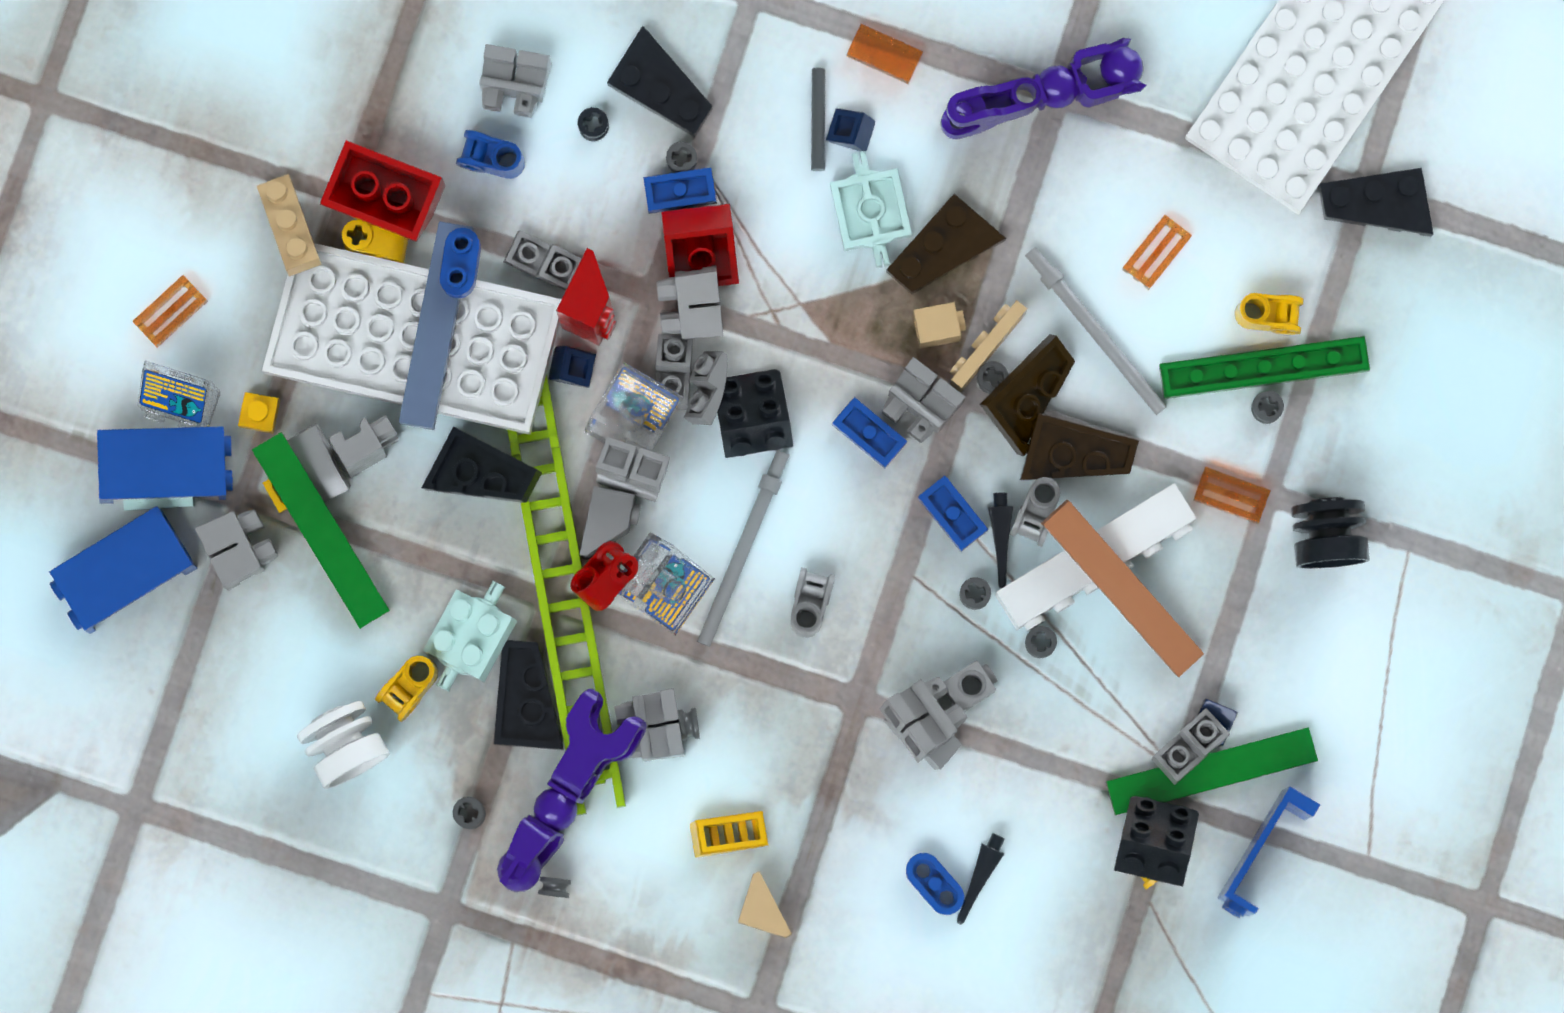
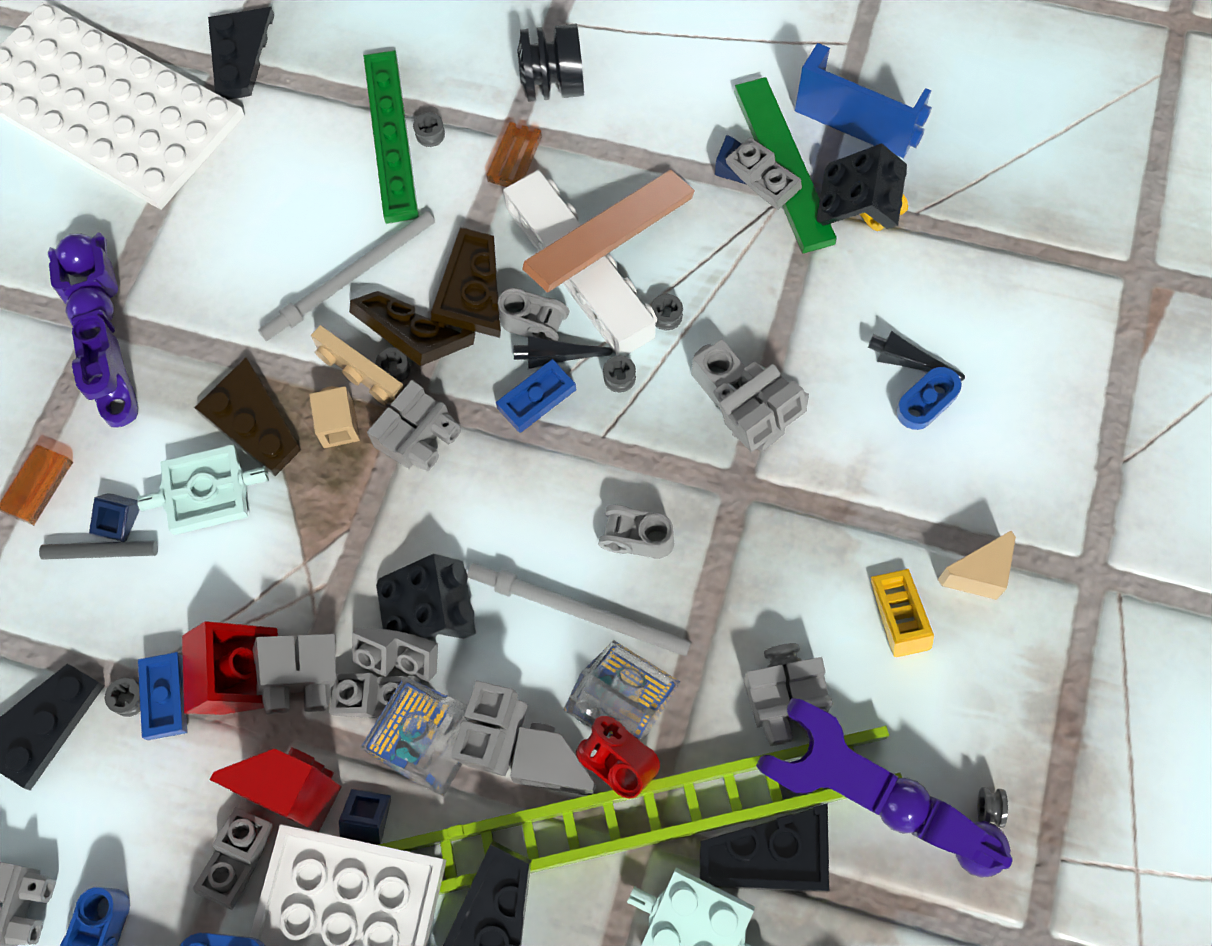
camera: 90 degrees left, 15 degrees down
(477, 805) = (923, 931): dark grey bush -> none
(599, 132) = (86, 807): black bush -> none
(869, 432) = (449, 481): blue plate -> none
(1138, 275) = (290, 240): clear orange tile -> none
(1277, 312) = (338, 128): yellow piece -> none

